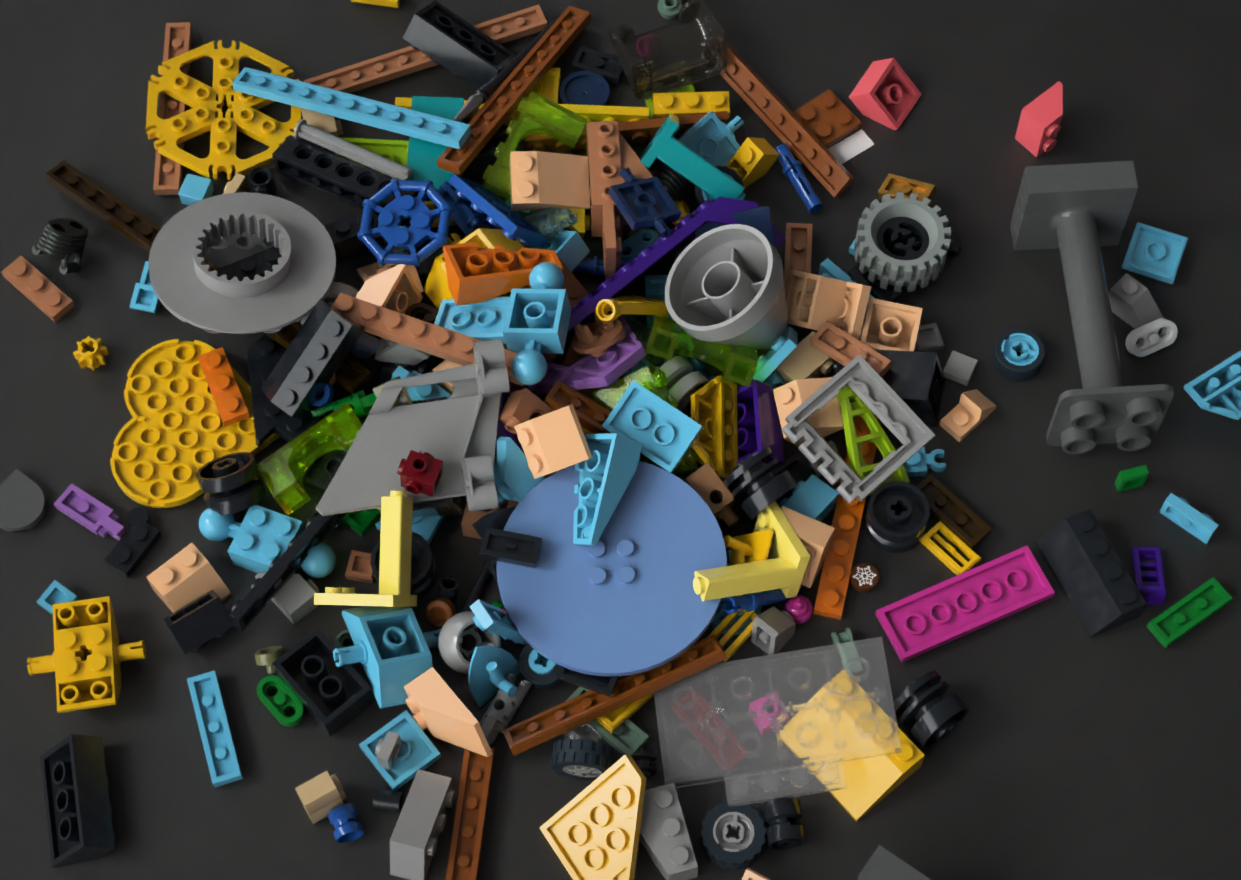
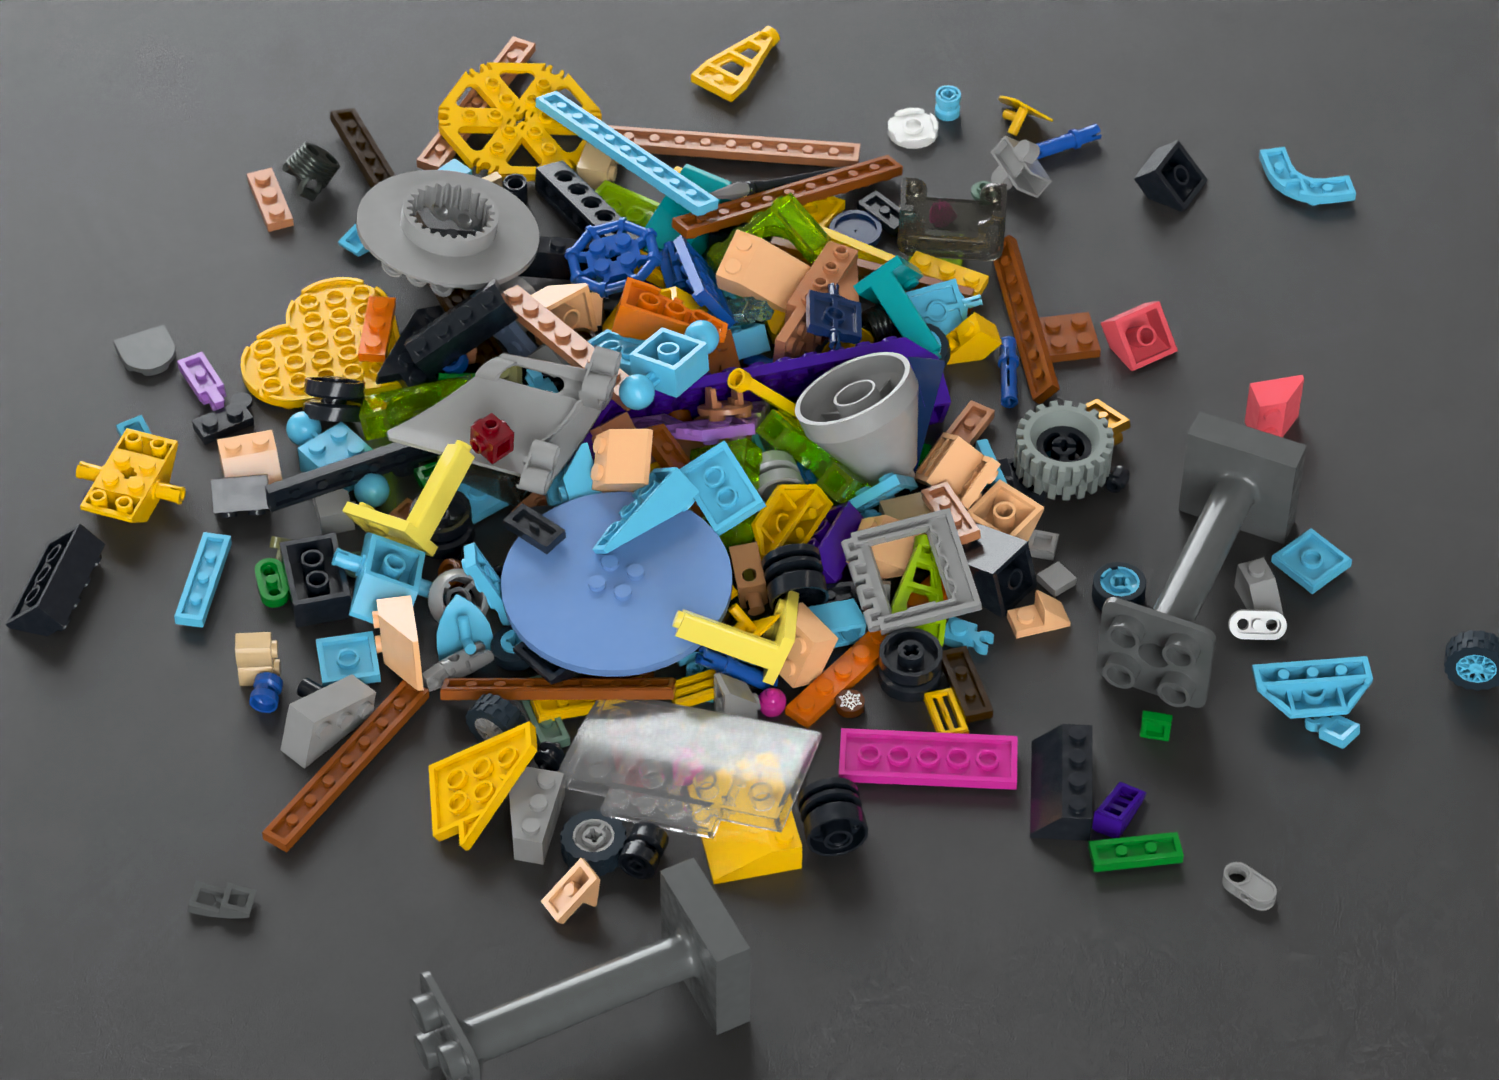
camera: 25 degrees right, 15 degrees down
(91, 353) = (282, 262): yellow gear -> none
(351, 151) = (574, 158): light grey axle -> none
(388, 749) = (336, 648): light grey plate -> none
(456, 45) = (756, 140): black slope -> none
(851, 146) = (1079, 368): white sticker -> none
(1184, 515) = (1184, 772): medium azure plate -> none

